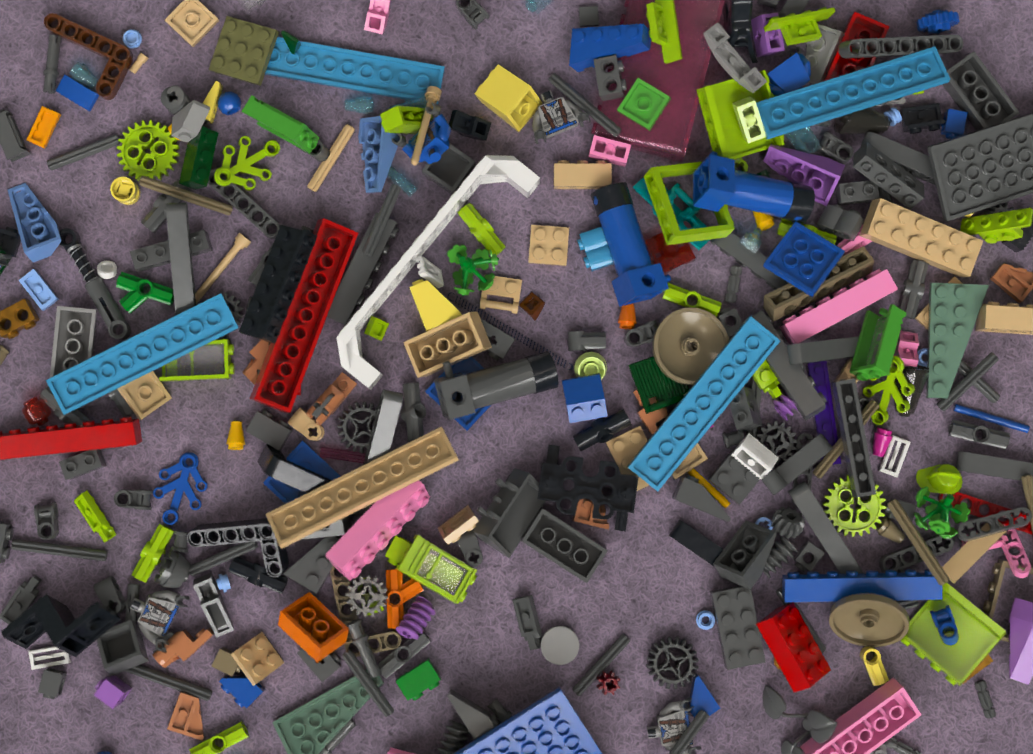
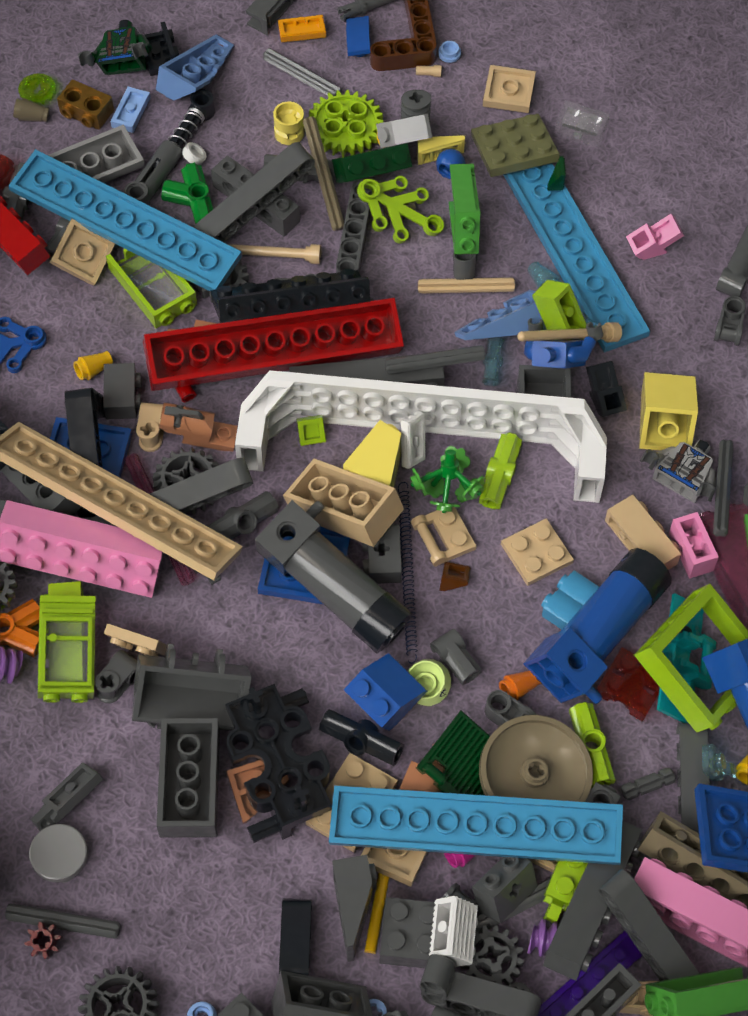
camera: 60 degrees right, 25 degrees down
(83, 75) = (380, 28): clear light blue cone -> none

